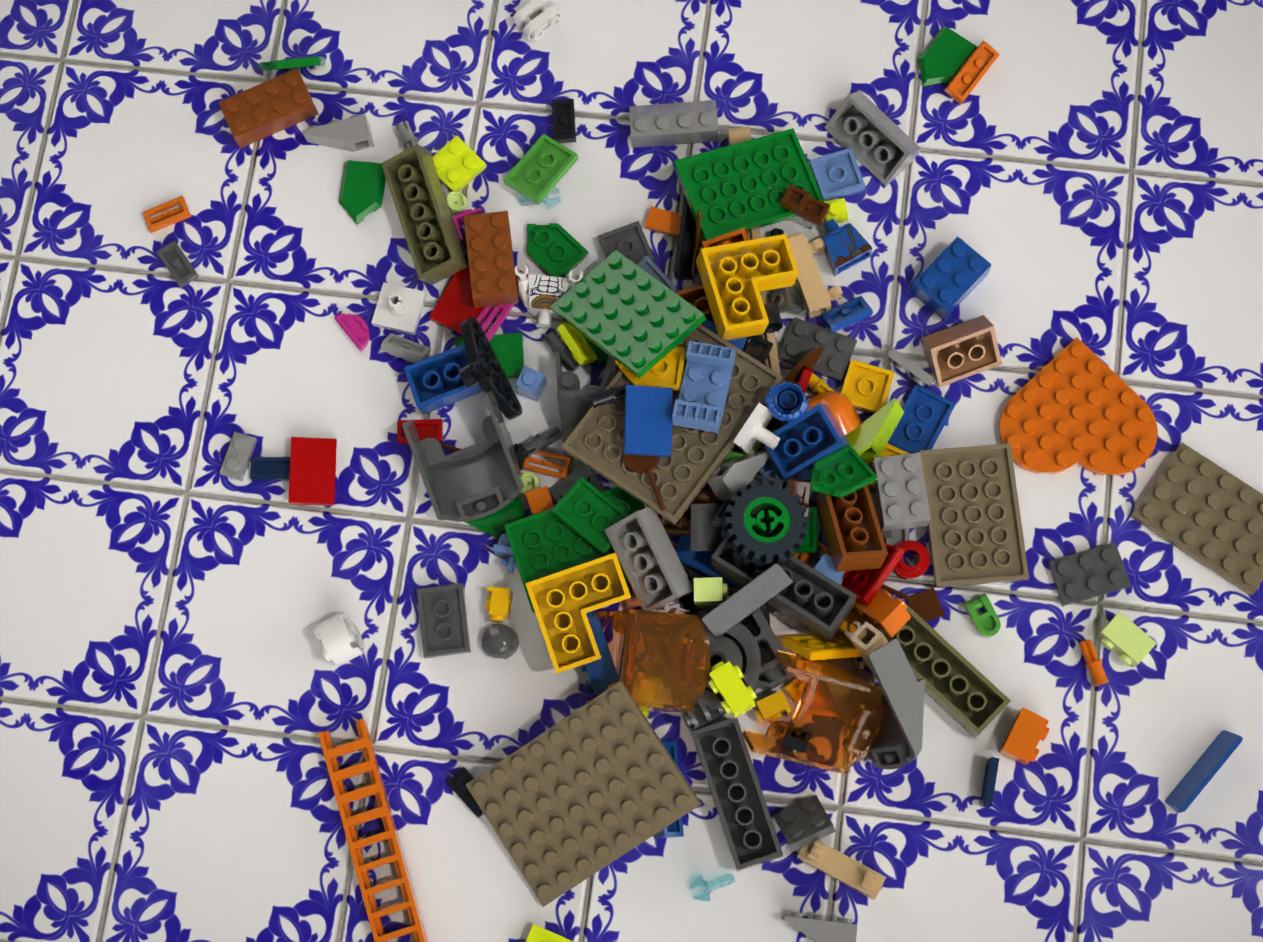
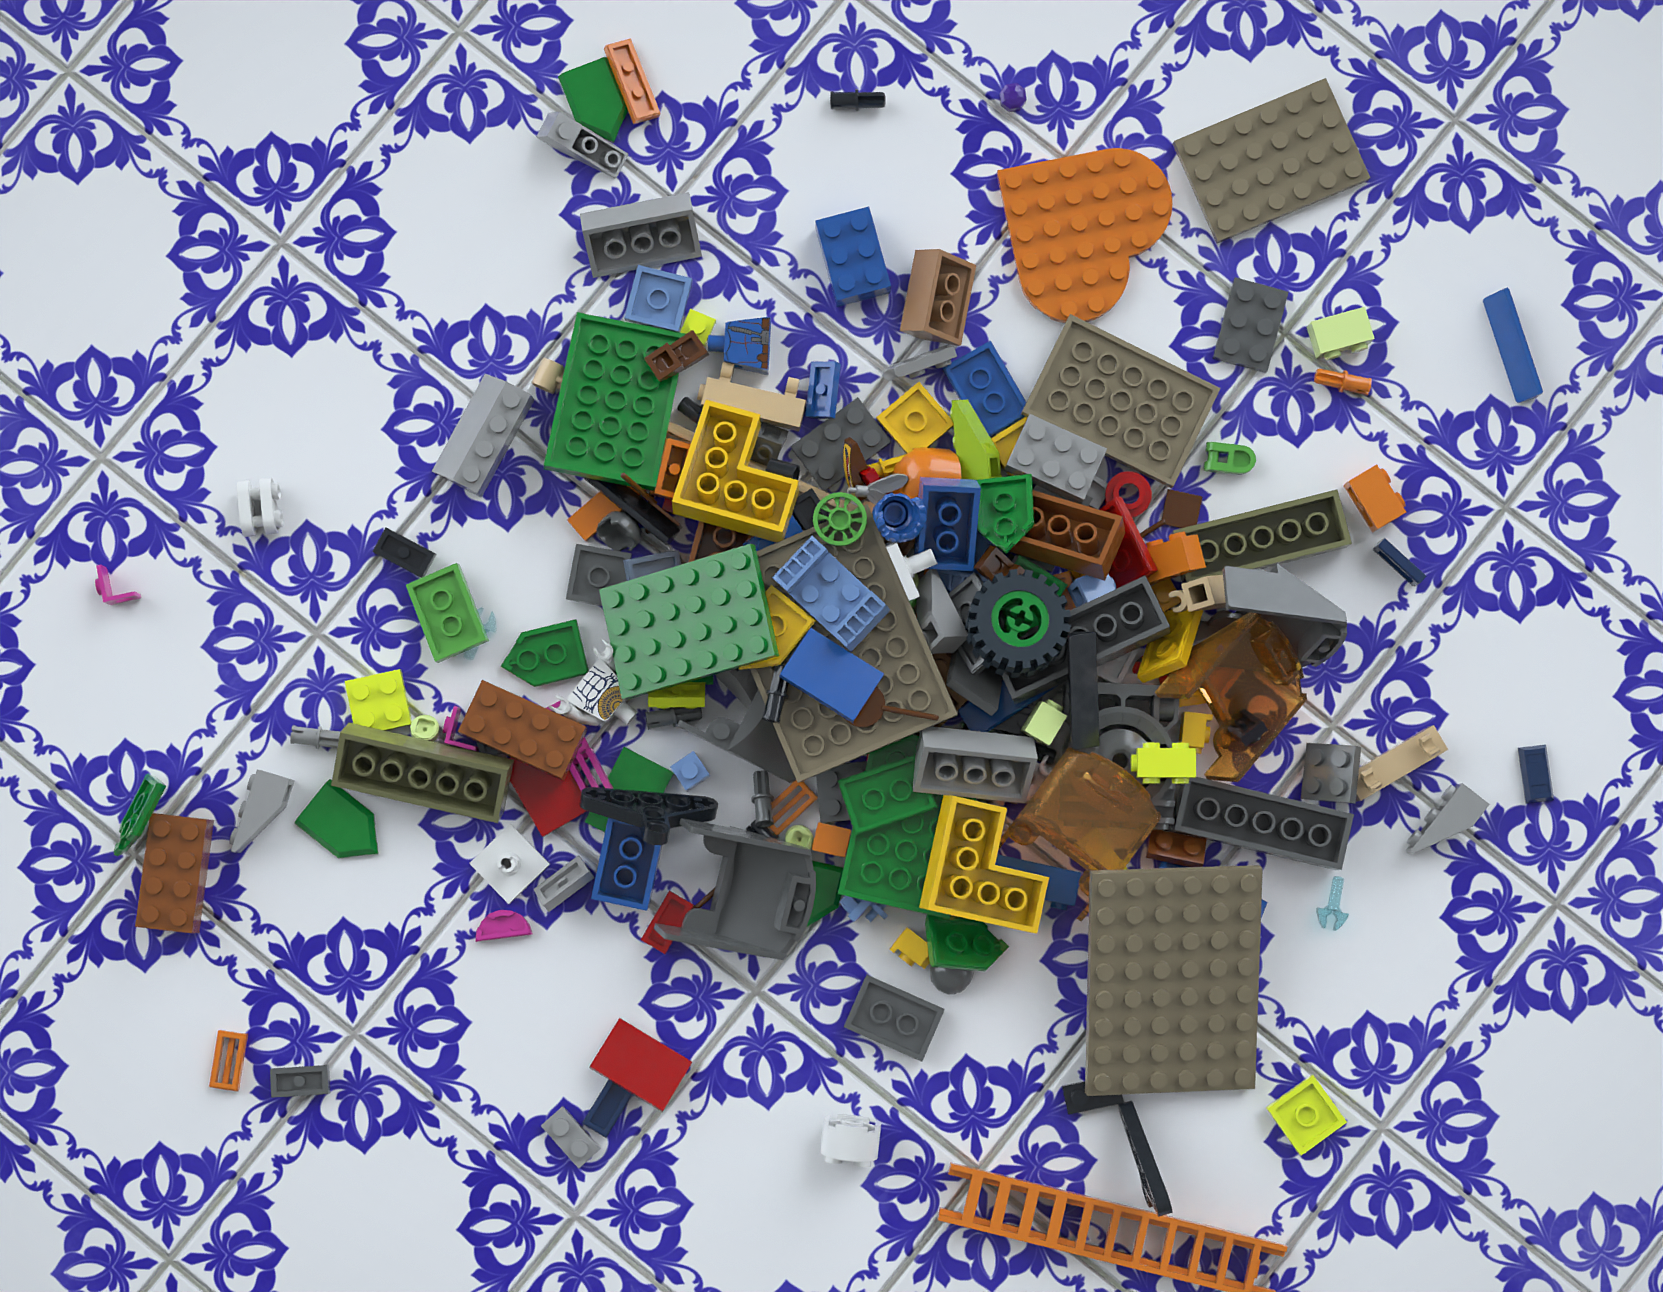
camera: 70 degrees left, 10 degrees up
(428, 864) = (1150, 1177): none -> black beam
(521, 634) = (961, 943): none -> green tile
(664, 241) = (619, 531): none -> dark grey hair
(681, 745) = (1176, 848): none -> dark orange plate
(760, 364) = (840, 519): none -> bright green wheel
(806, 387) = (879, 488): none -> light grey piece
(907, 67) = (581, 144): none -> light grey slope
(1060, 218) = (857, 100): none -> black axle
(1135, 317) = (1012, 97): none -> dark purple tile

